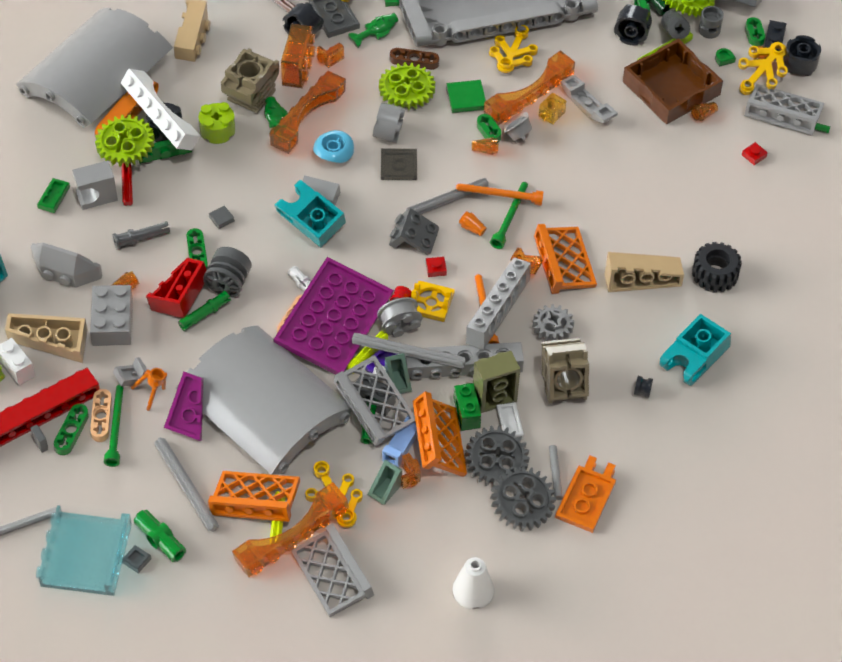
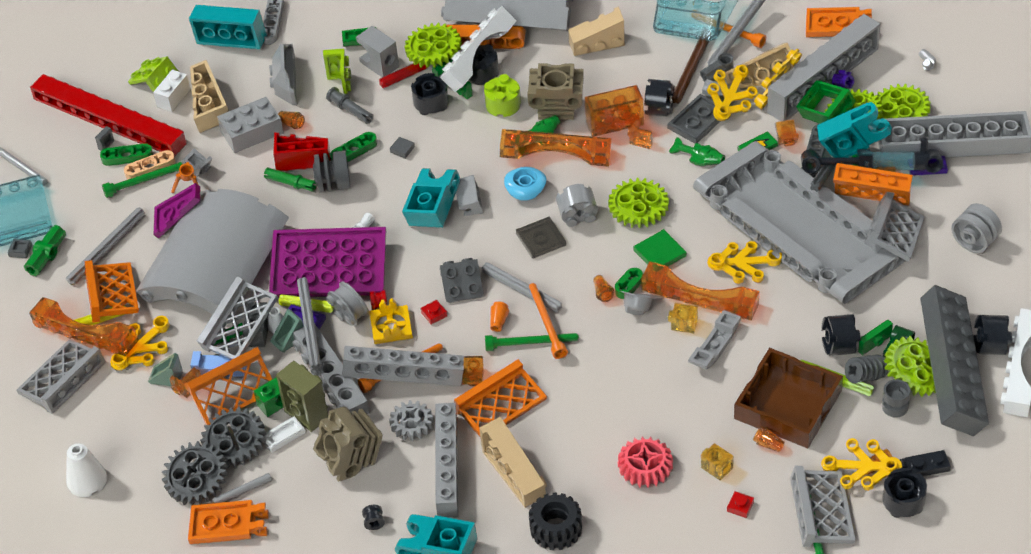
camera: 70 degrees right, 5 degrees down
(95, 216) = (336, 67): none -> lime bracket
(176, 170) = (429, 94): none -> black brick
(427, 56) = (682, 188): reddish brown beam -> none
(612, 314) = (446, 459): none -> light grey brick
(685, 190) = (632, 463): none -> coral gear
(709, 148) = (717, 461): none -> clear yellow brick
(724, 57) = (862, 431): green tile -> none
(758, 31) = (916, 442): green beam -> none

